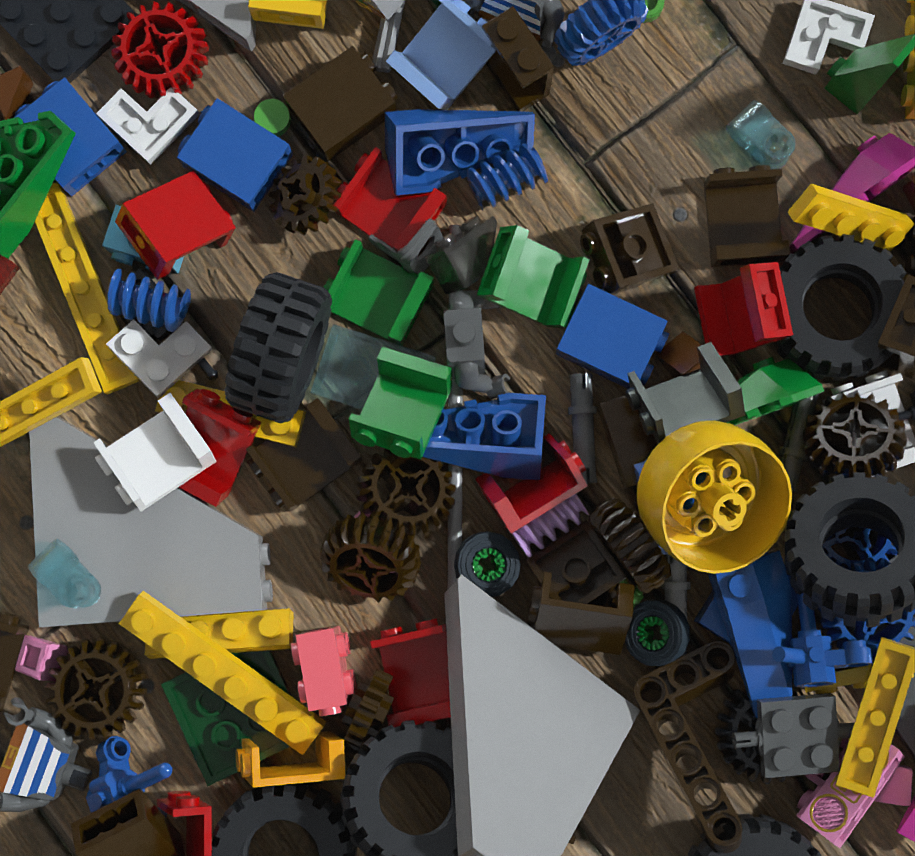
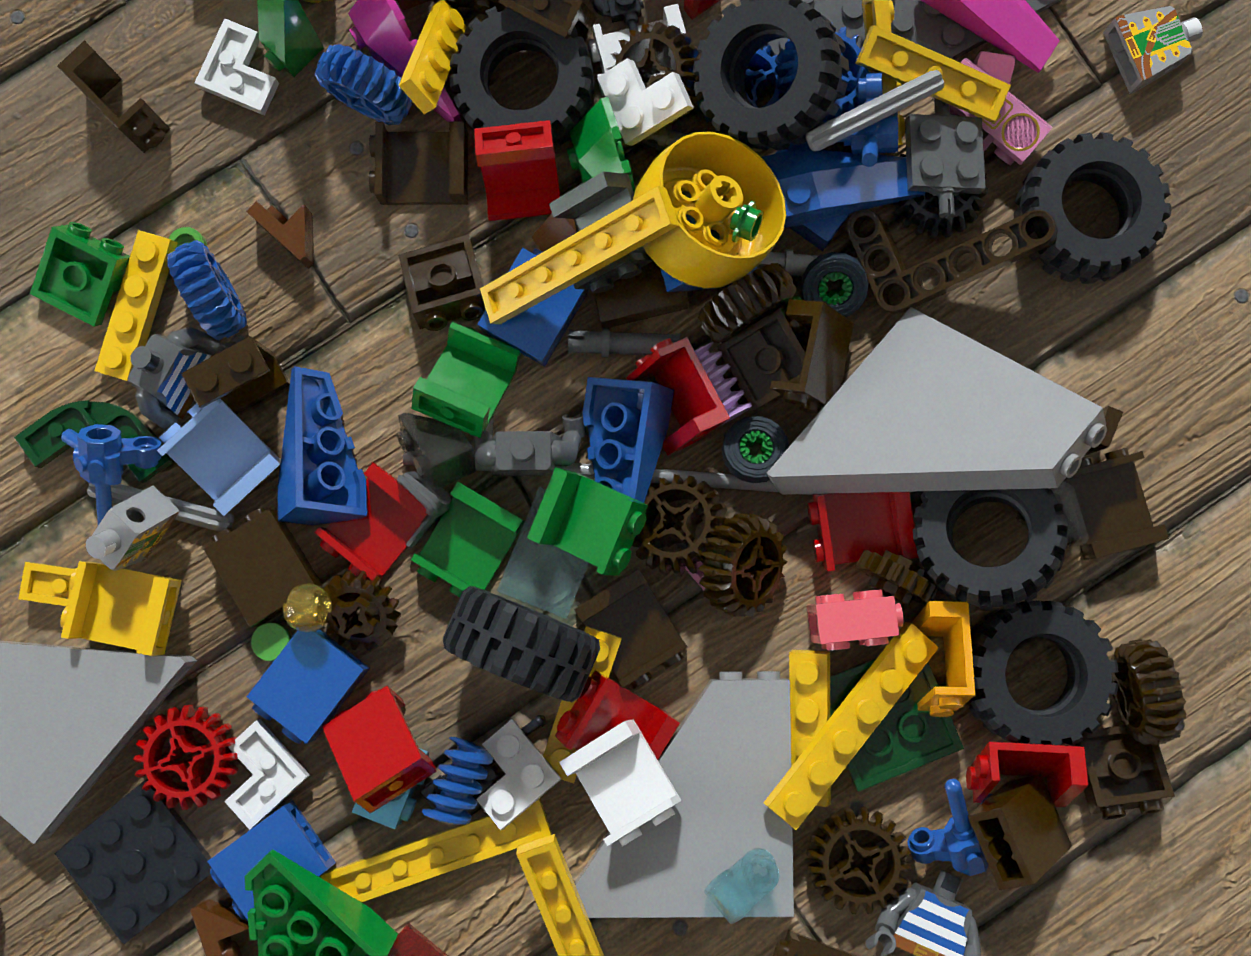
camera: 85 degrees left, 0 degrees up
(38, 657) = (822, 920): bright pink slope -> none
(302, 145) = (307, 607): none -> clear yellow piece
(506, 175) = (355, 400): blue piece -> none
(655, 372) = (580, 255): none -> yellow plate
(663, 102) = (292, 234): none -> reddish brown slope
(700, 532) = (746, 222): none -> green plate
(758, 132) = (334, 143): clear light blue piece -> none
(815, 426) = (642, 109): none -> white plate
(818, 151) = (363, 84): none -> blue gear
(831, 657) = (874, 110): none -> light grey axle

